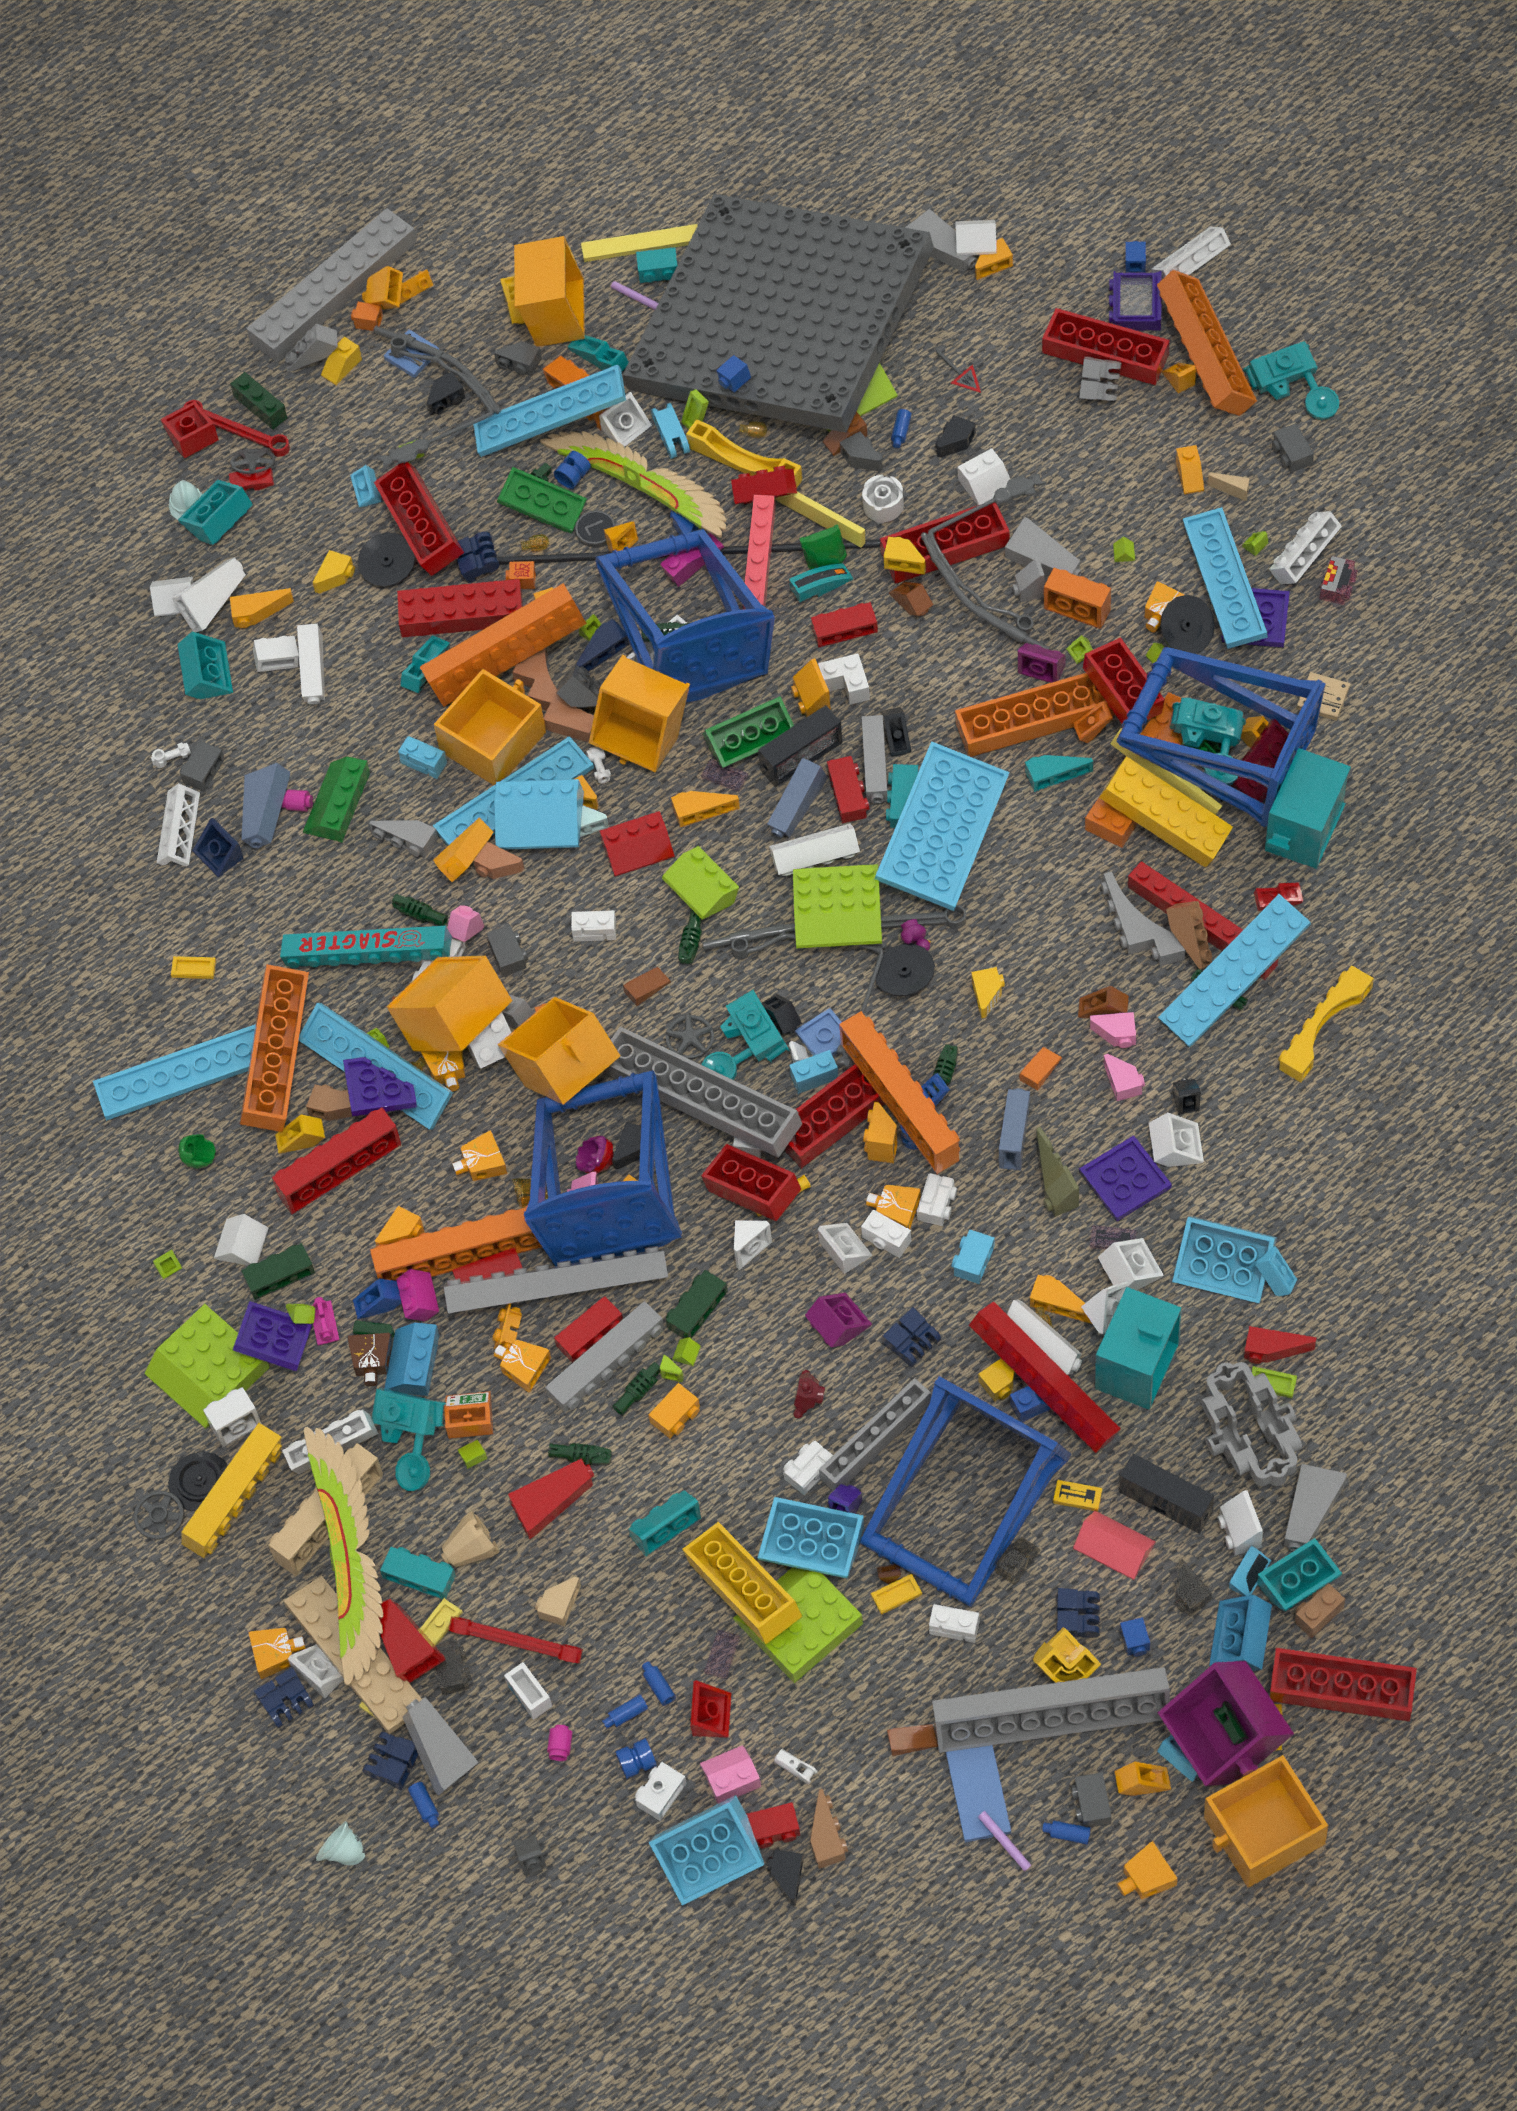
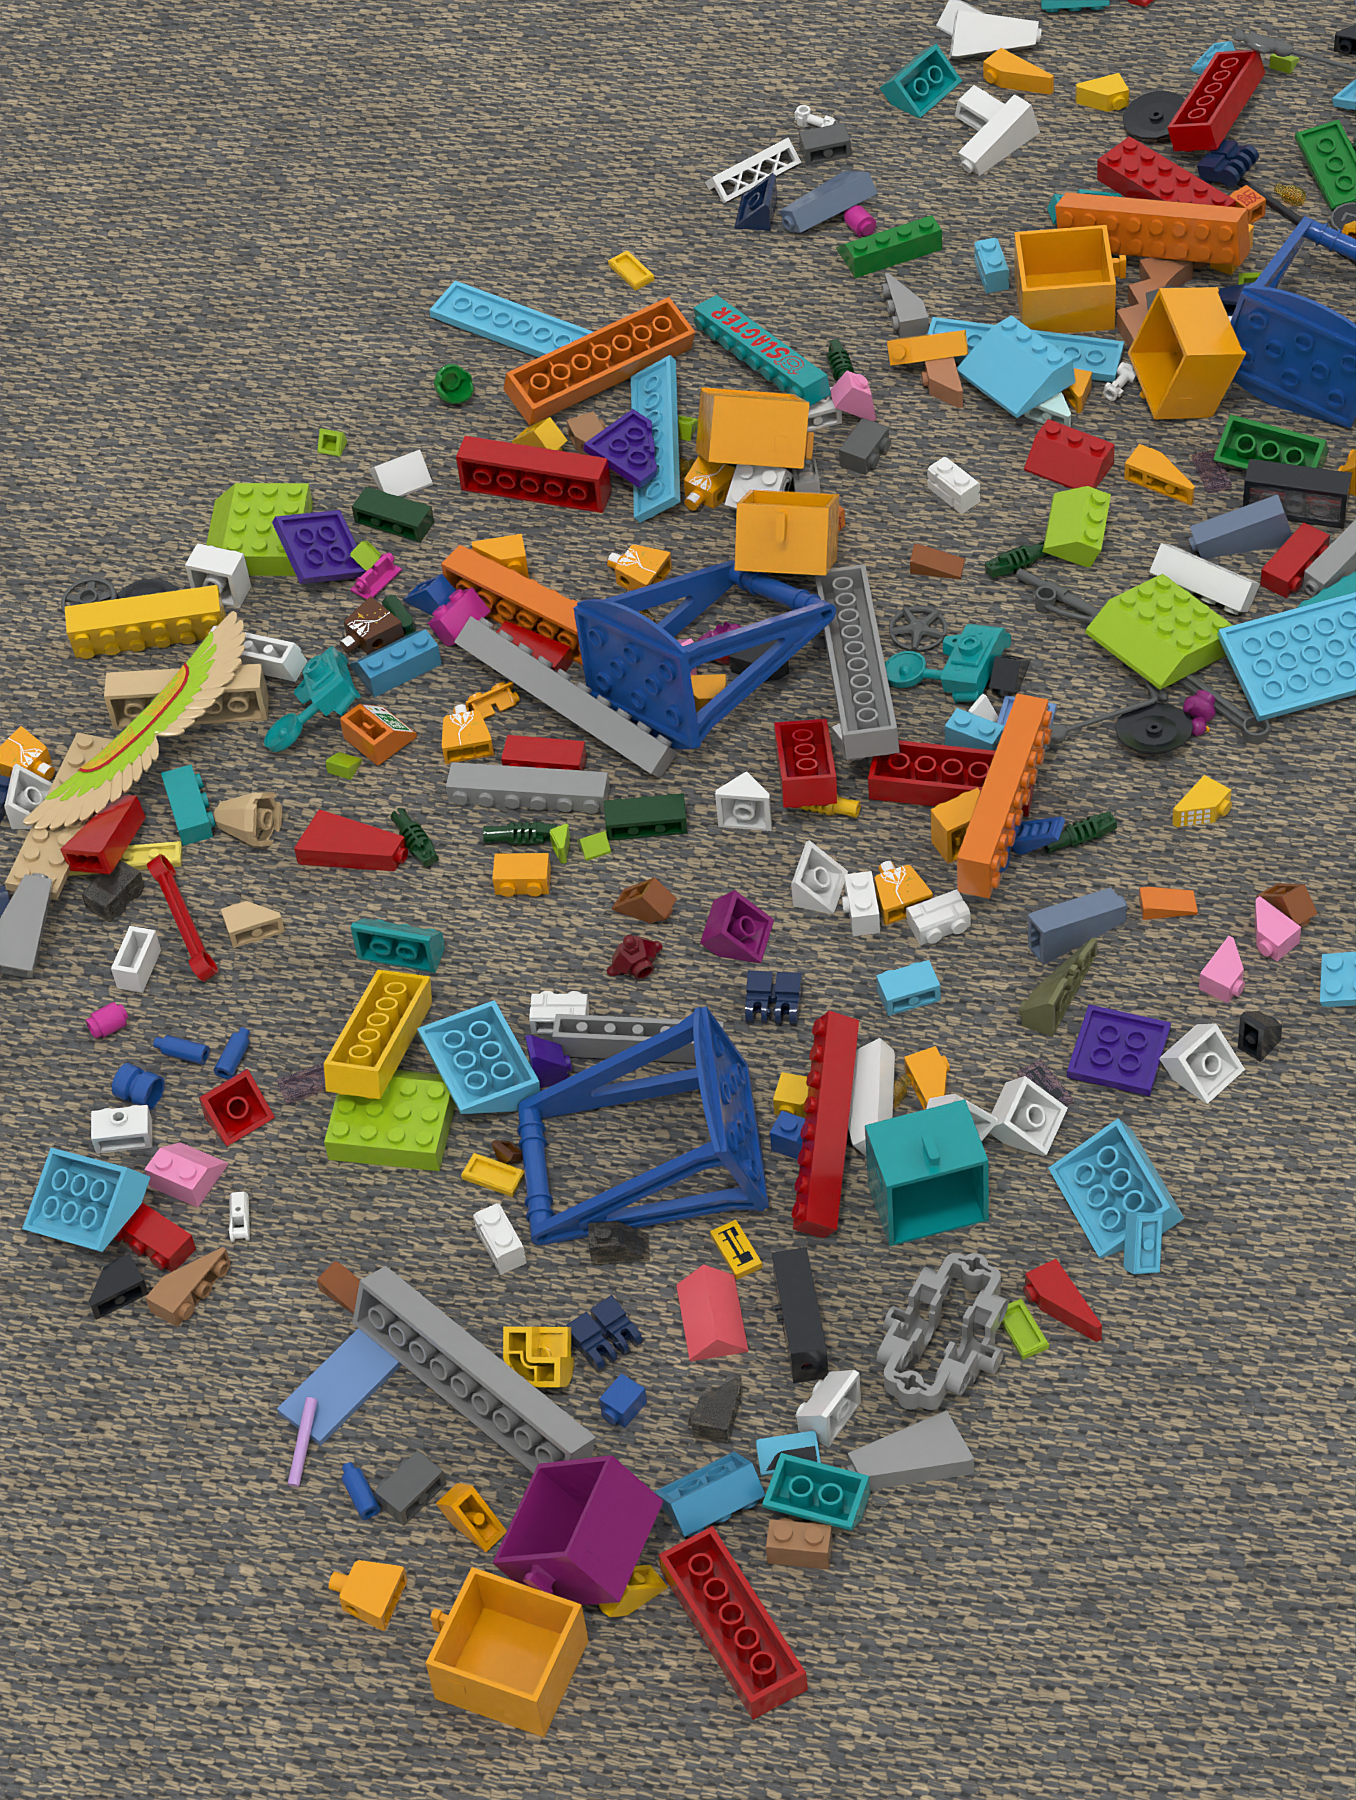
camera: 50 degrees right, 10 degrees down
(765, 1355) = (646, 901): none -> dark orange slope

